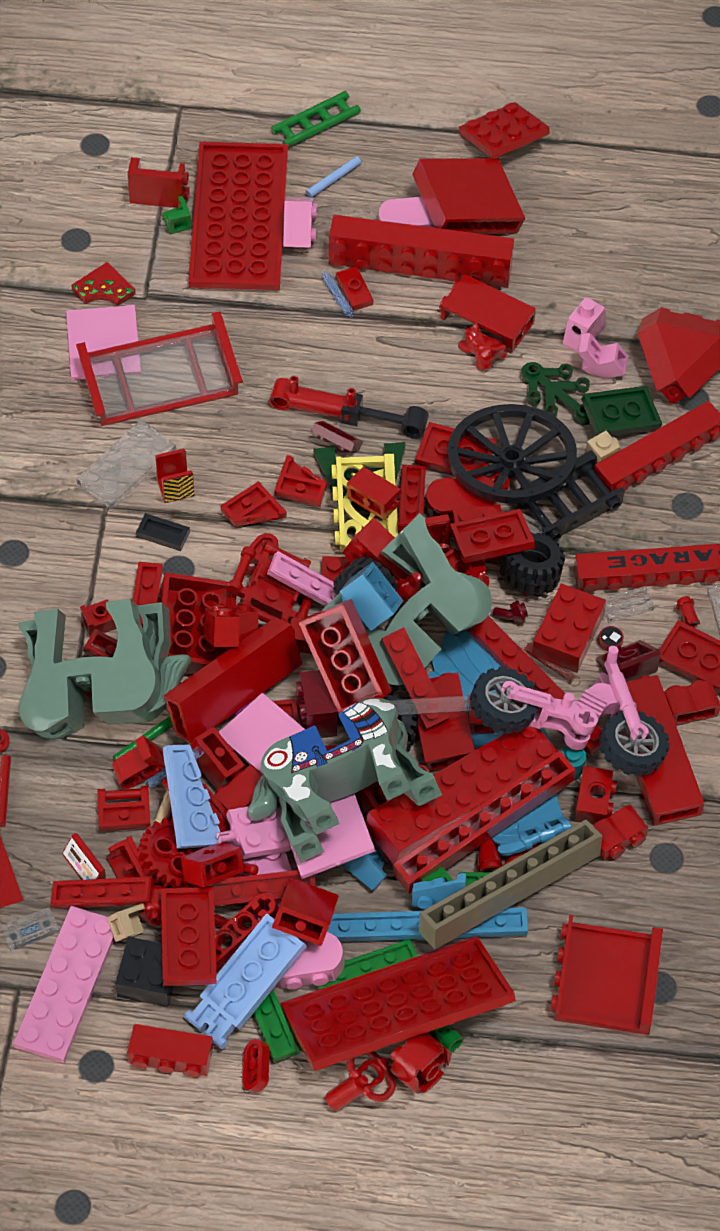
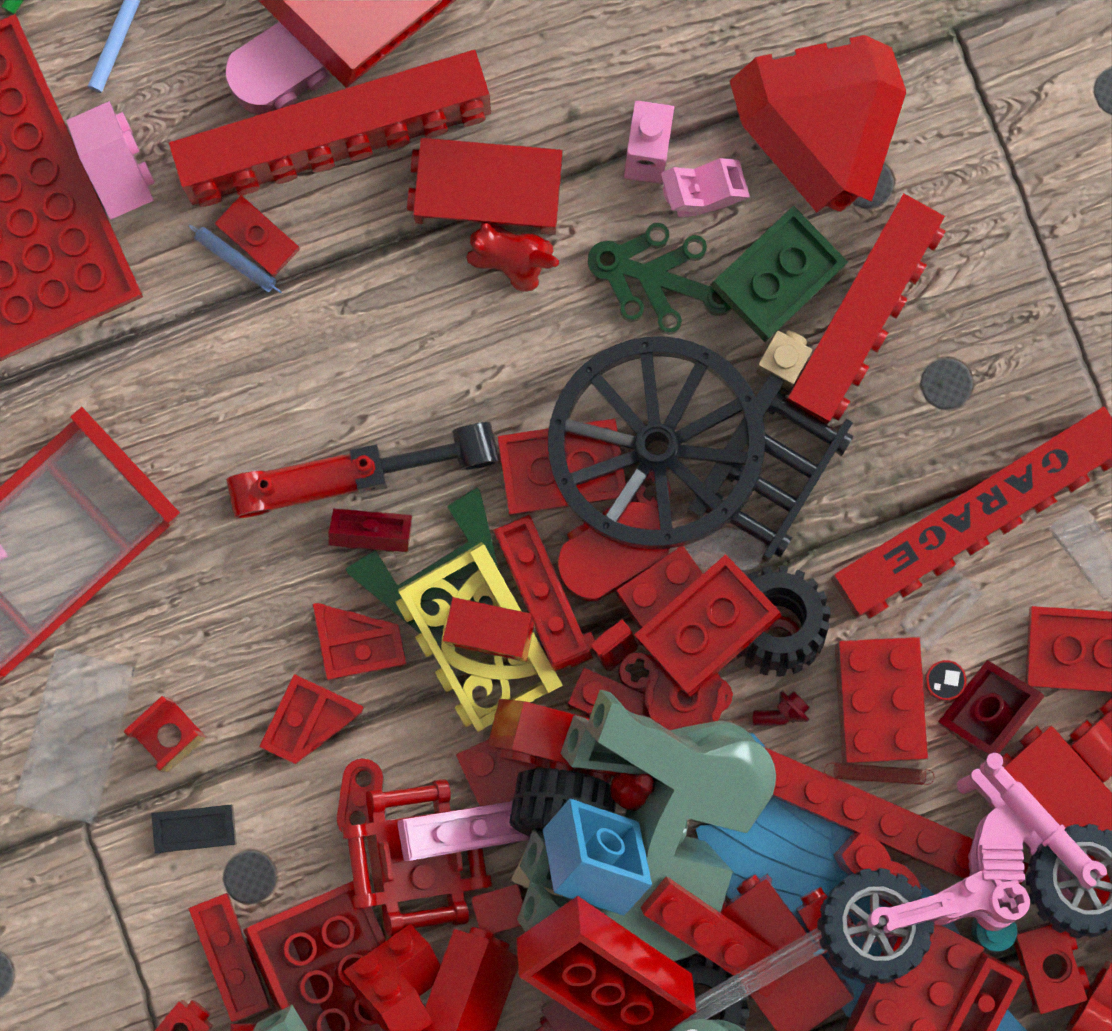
camera: 25 degrees left, 25 degrees up
(688, 613) = (1037, 580): red pin -> none

